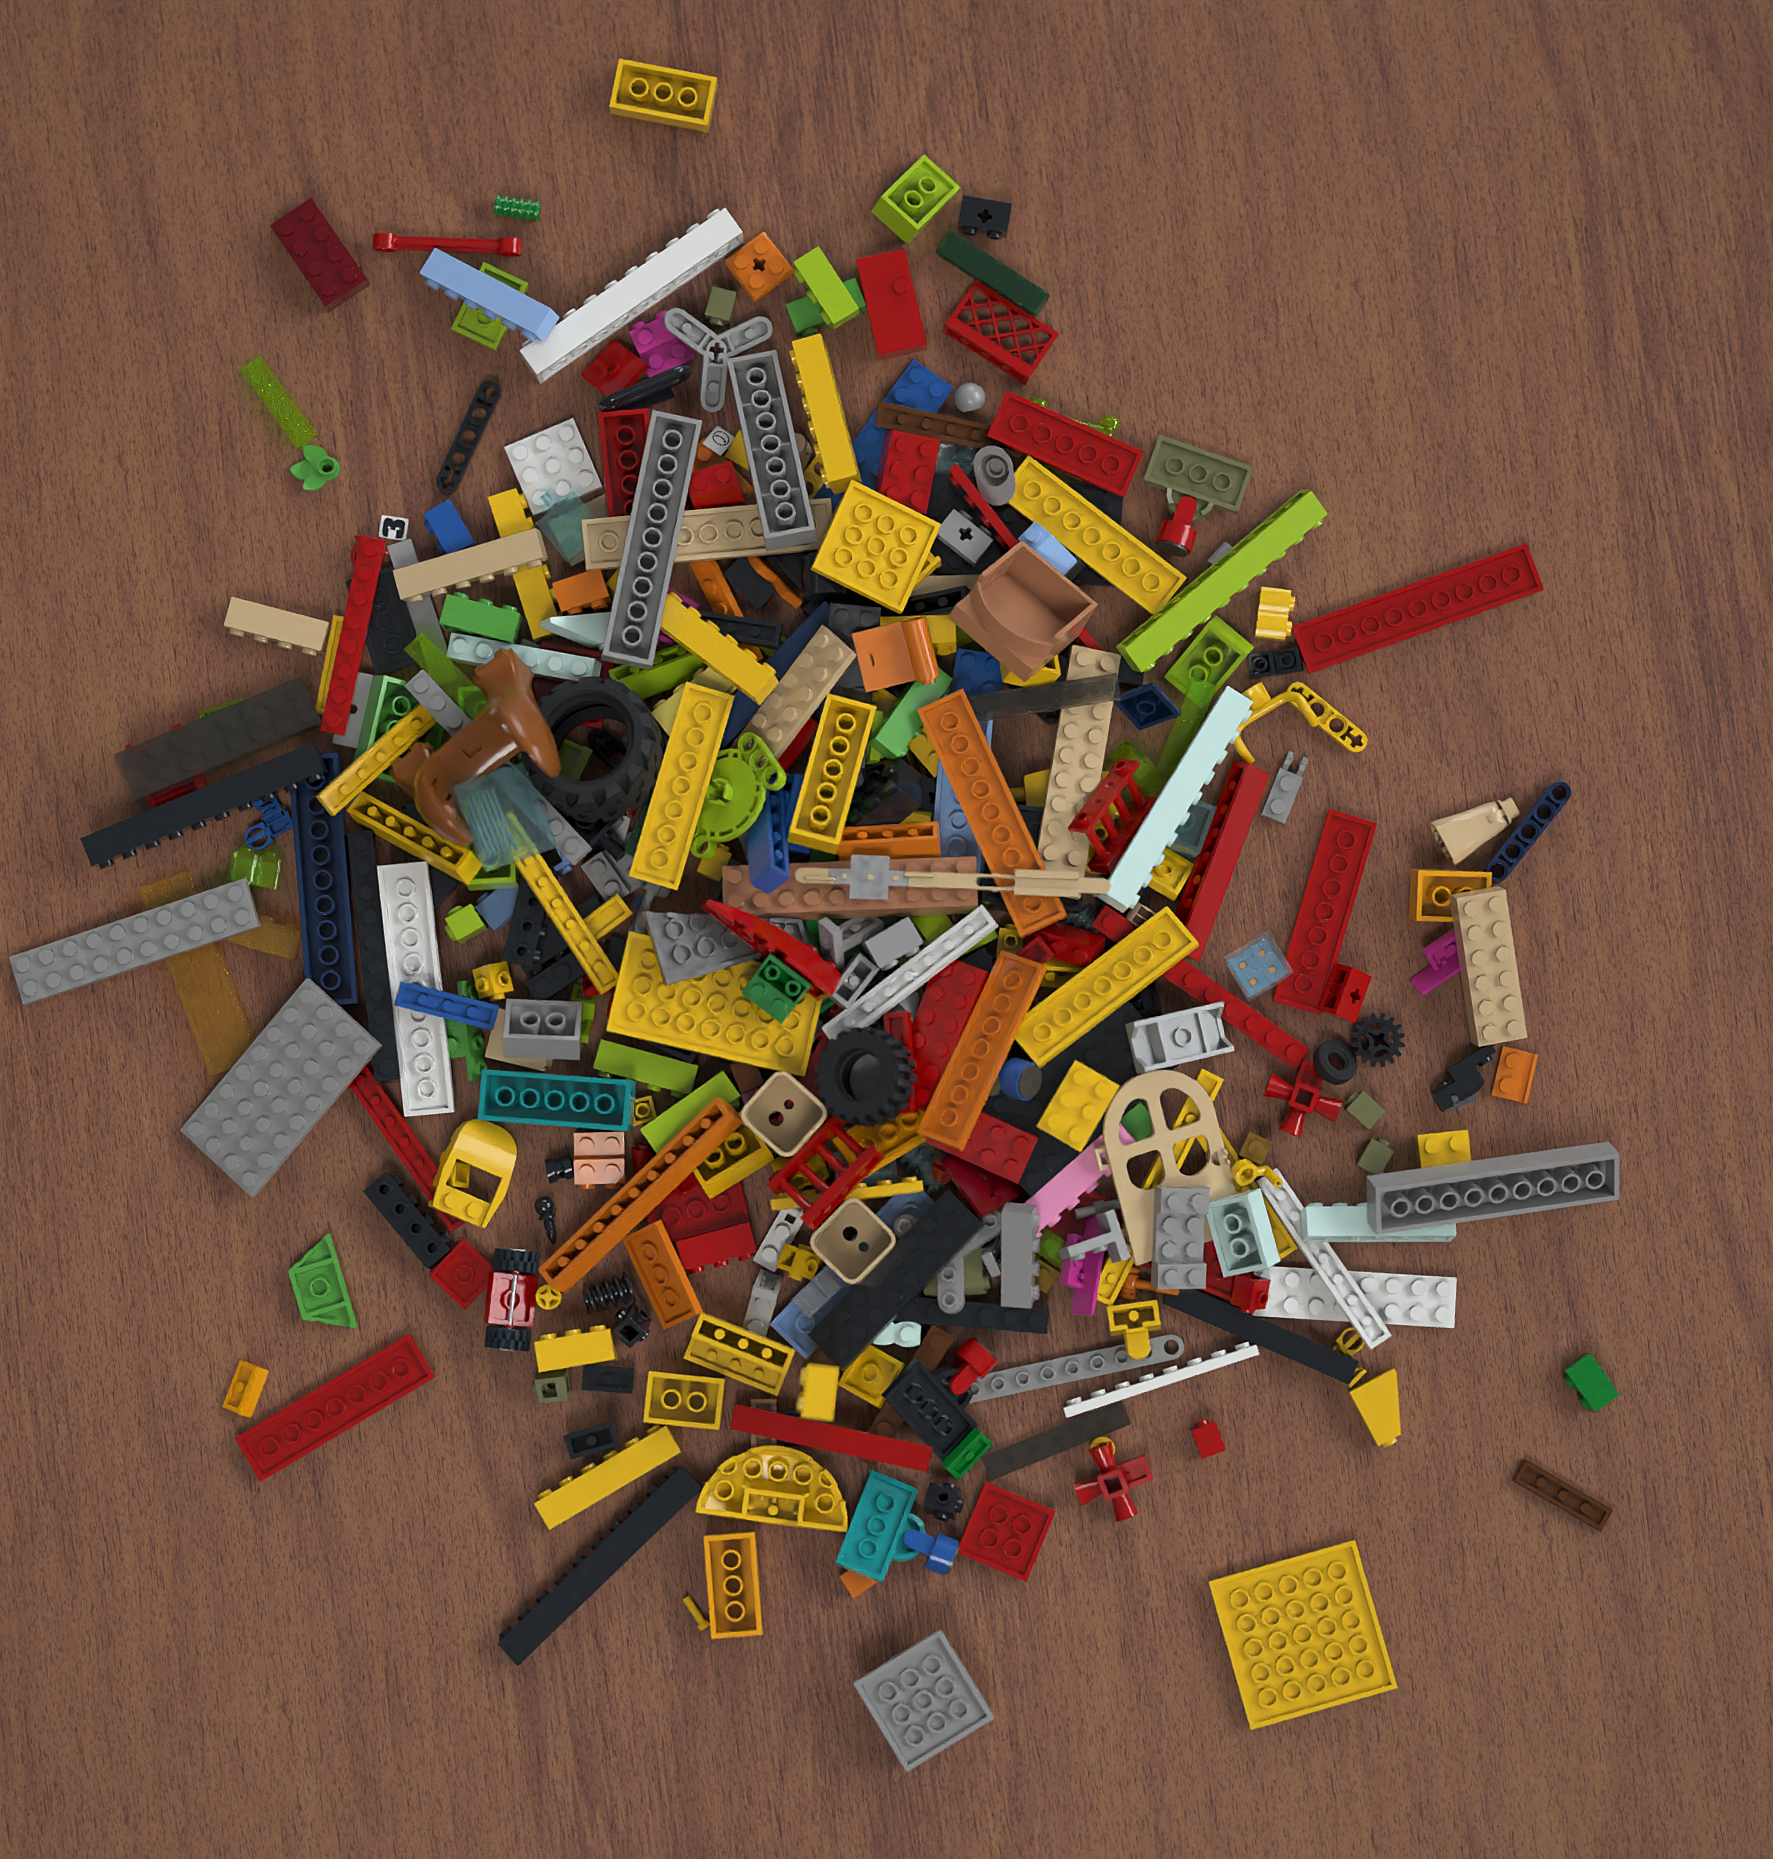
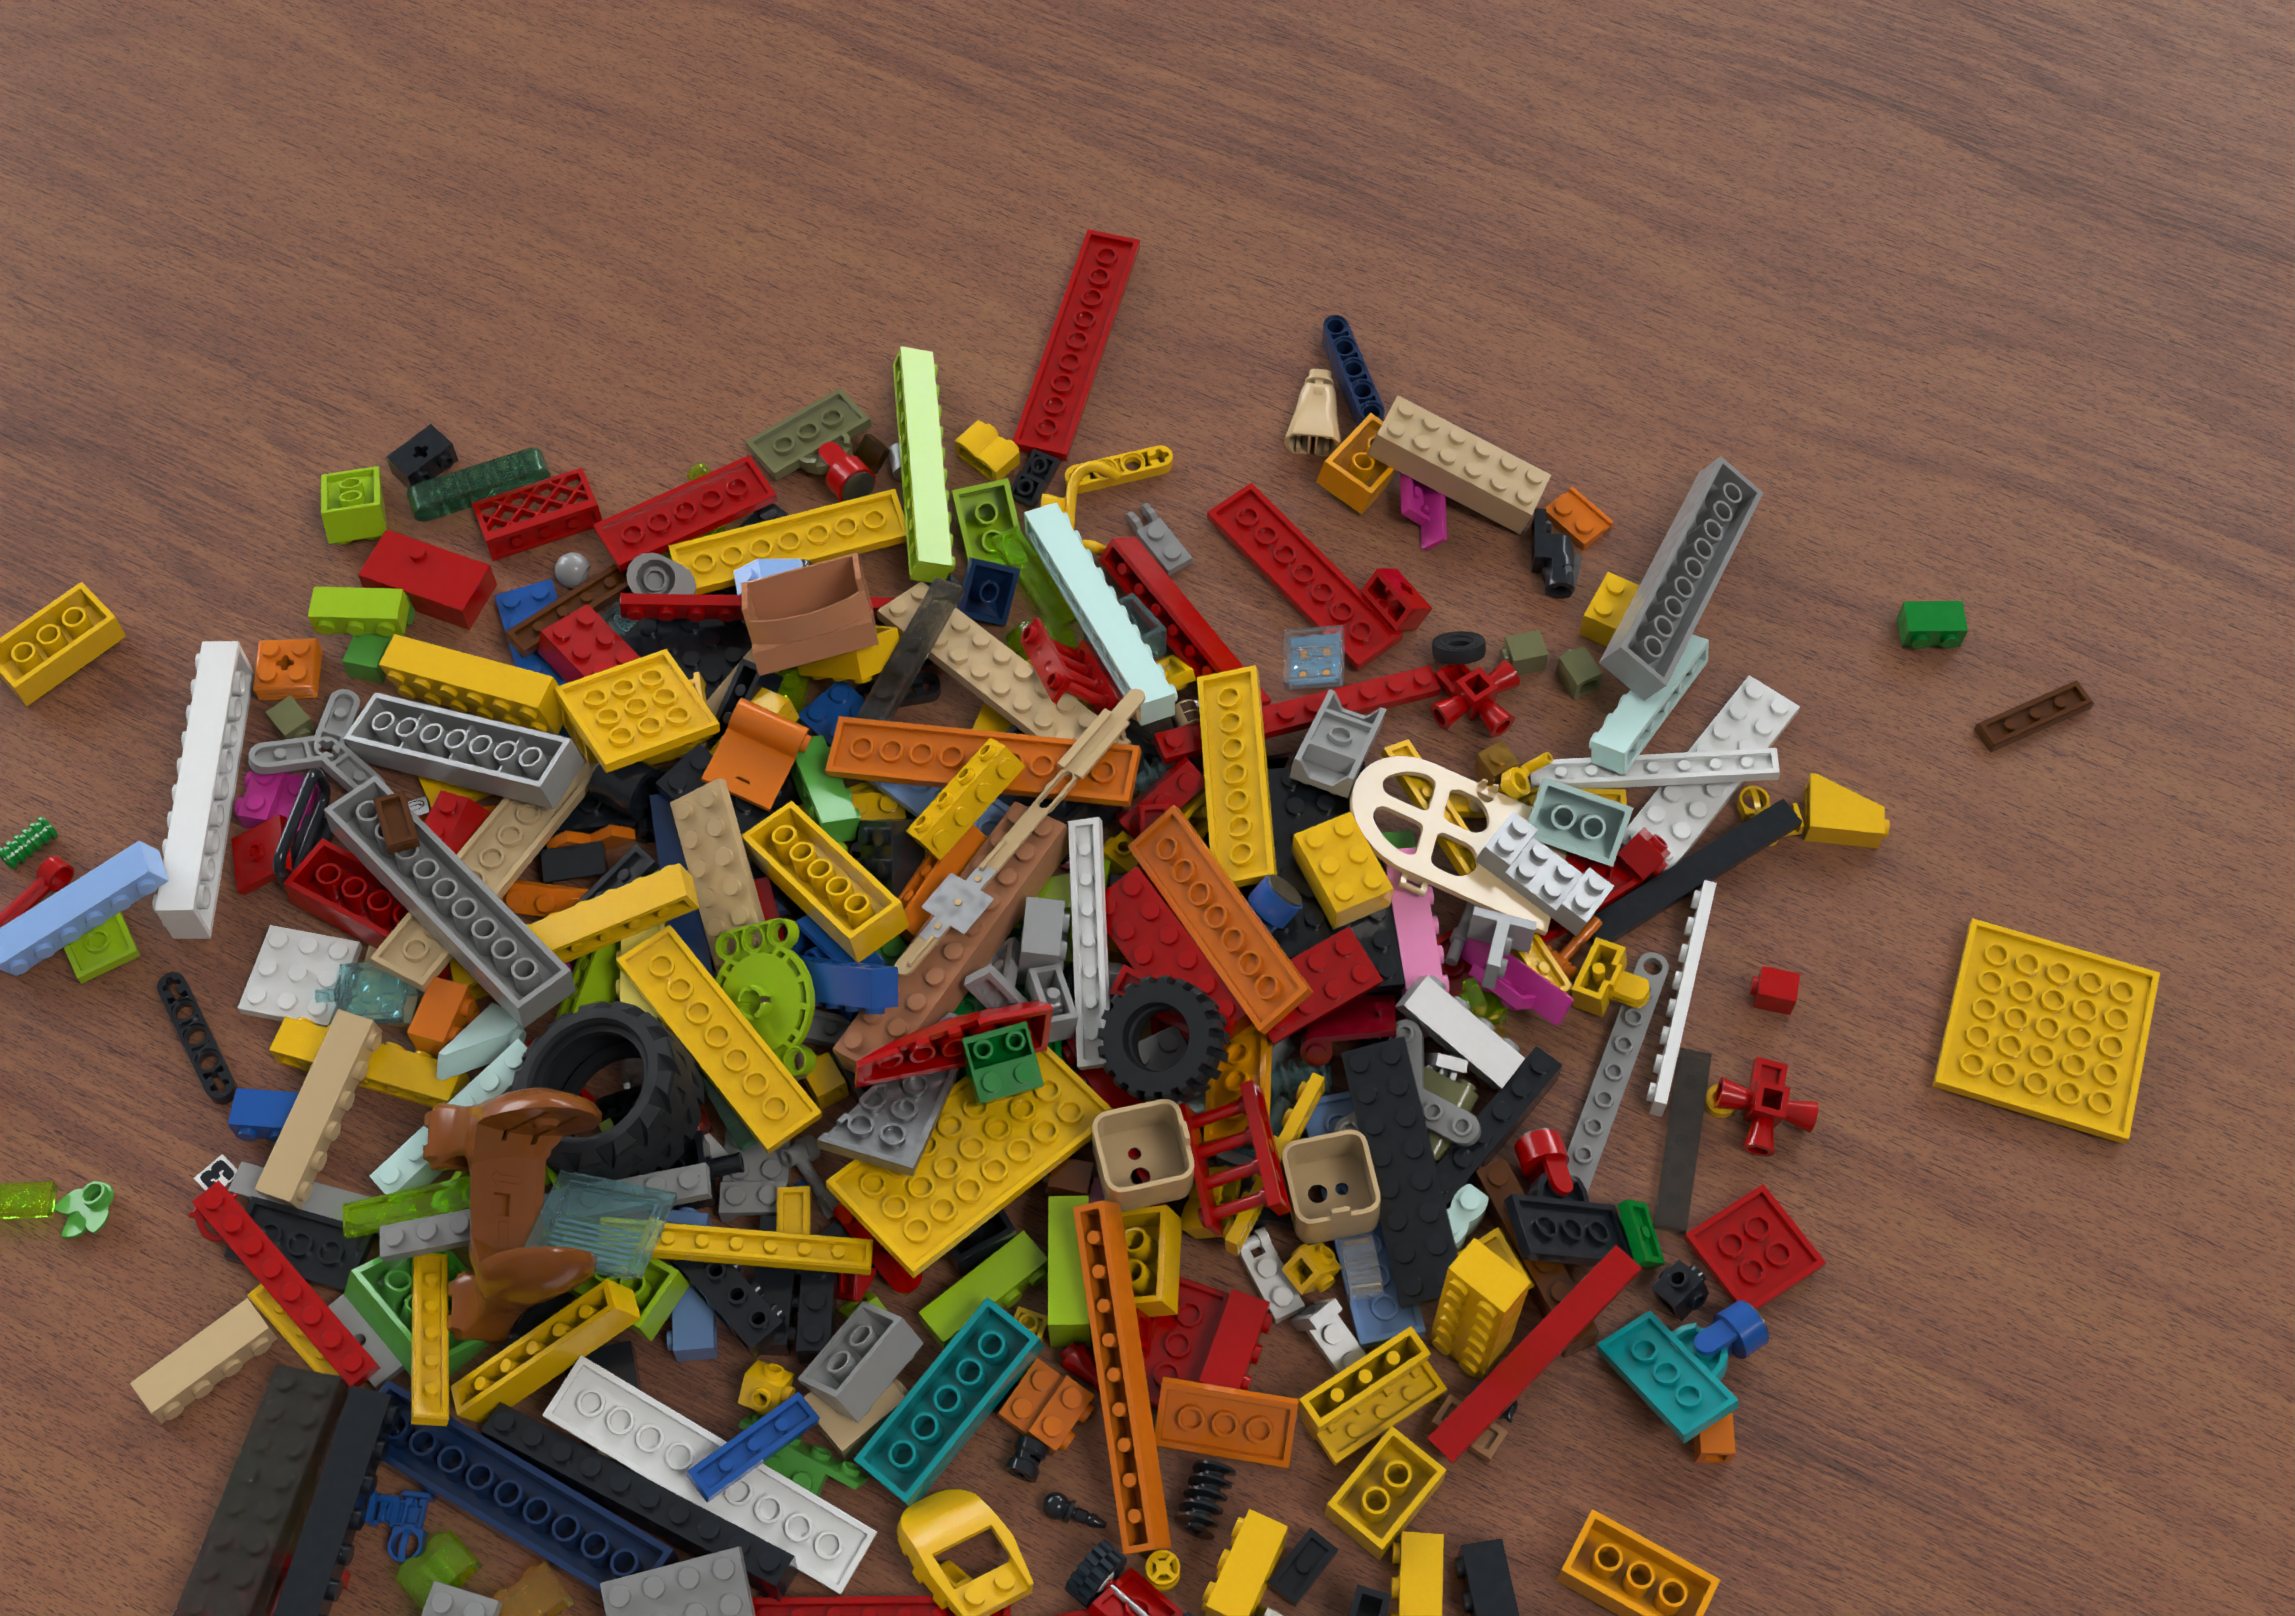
camera: 55 degrees left, 25 degrees down
(464, 923) = (681, 1372): lime brick -> none
(481, 619) = (377, 1136): bright green brick -> none
(631, 1325) = (1266, 1499): black brick -> none
(675, 467) = (396, 822): none -> reddish brown tile
(775, 1488) = (1555, 1460): yellow brick -> none
(923, 1700) = (1906, 1451): light grey piece -> none
(948, 827) = (965, 798): none -> yellow brick
(969, 550) = (698, 645): light grey brick -> none
(1212, 532) = (872, 452): none -> dark brown tile
(1383, 1031) = (1462, 603): black gear -> none

